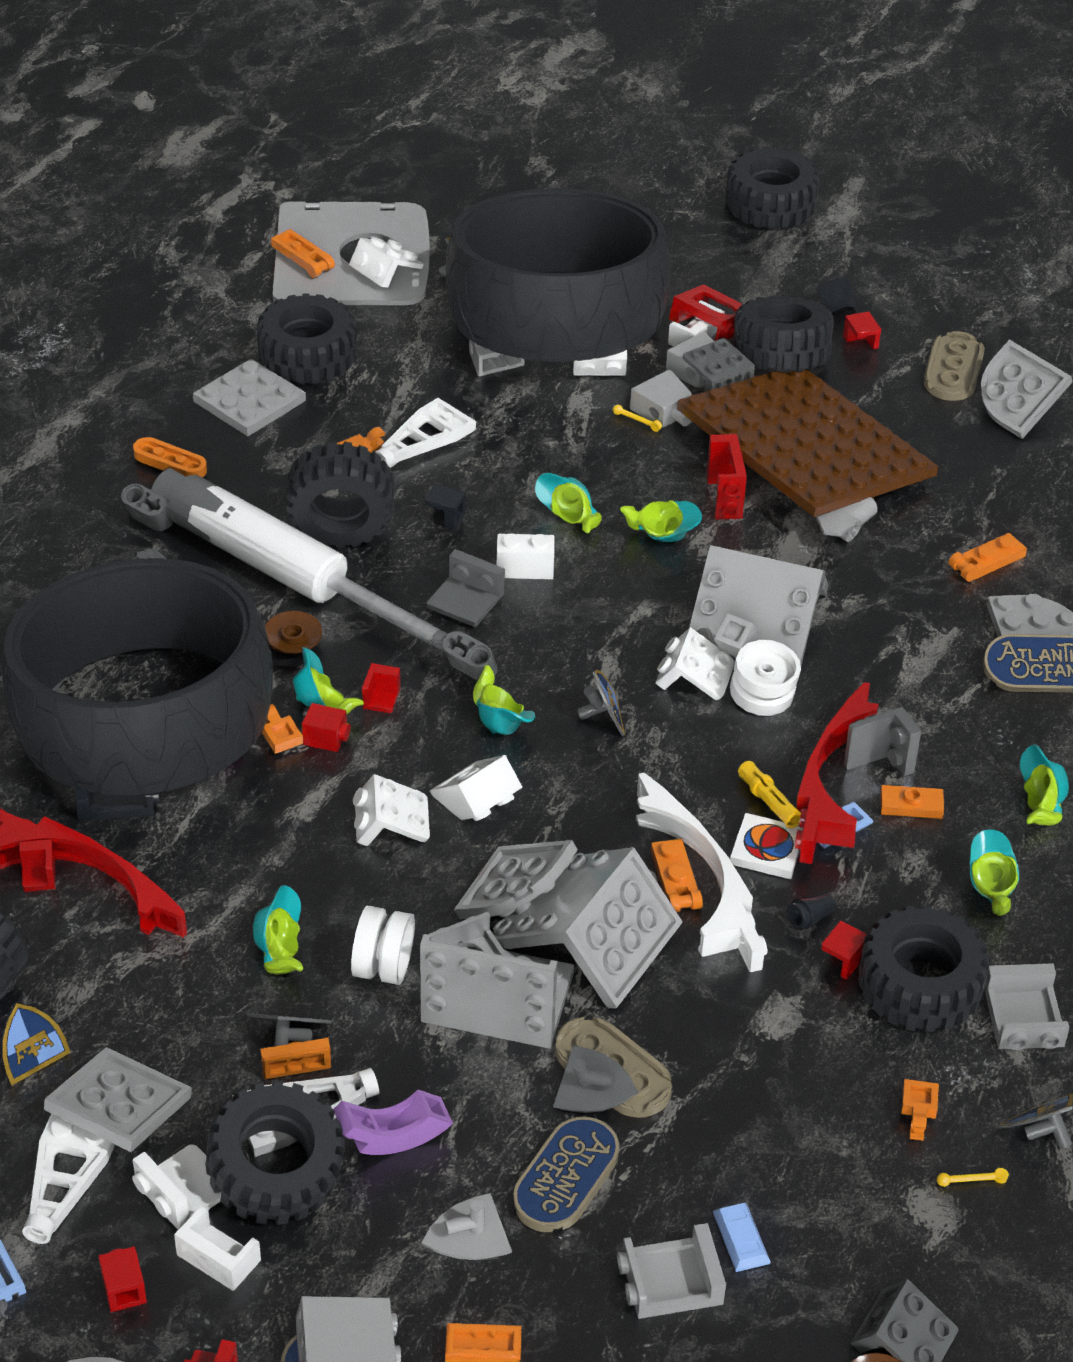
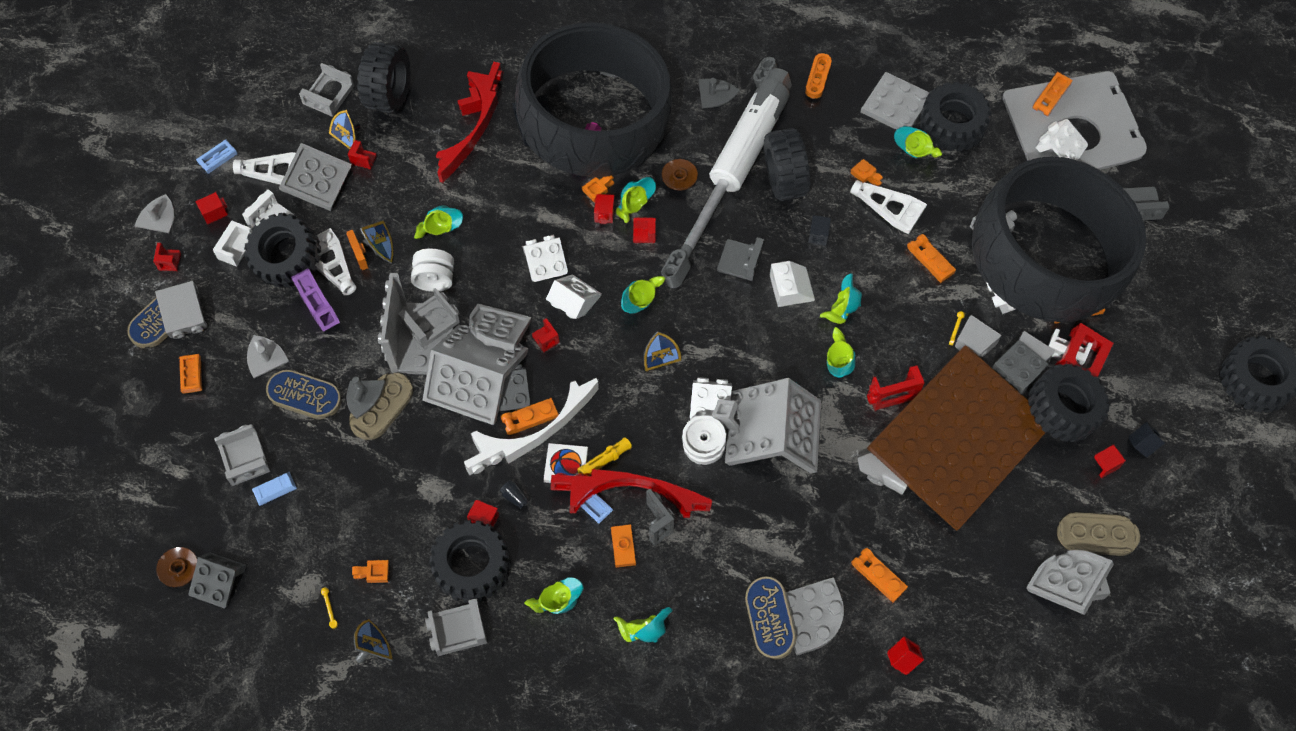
camera: 80 degrees right, 20 degrees up
(92, 1035) = (361, 157): none -> red panel
(339, 381) = (915, 142): none -> lime hair
(521, 417) = (931, 258): none -> orange plate
(537, 827) = (546, 336): none -> red panel

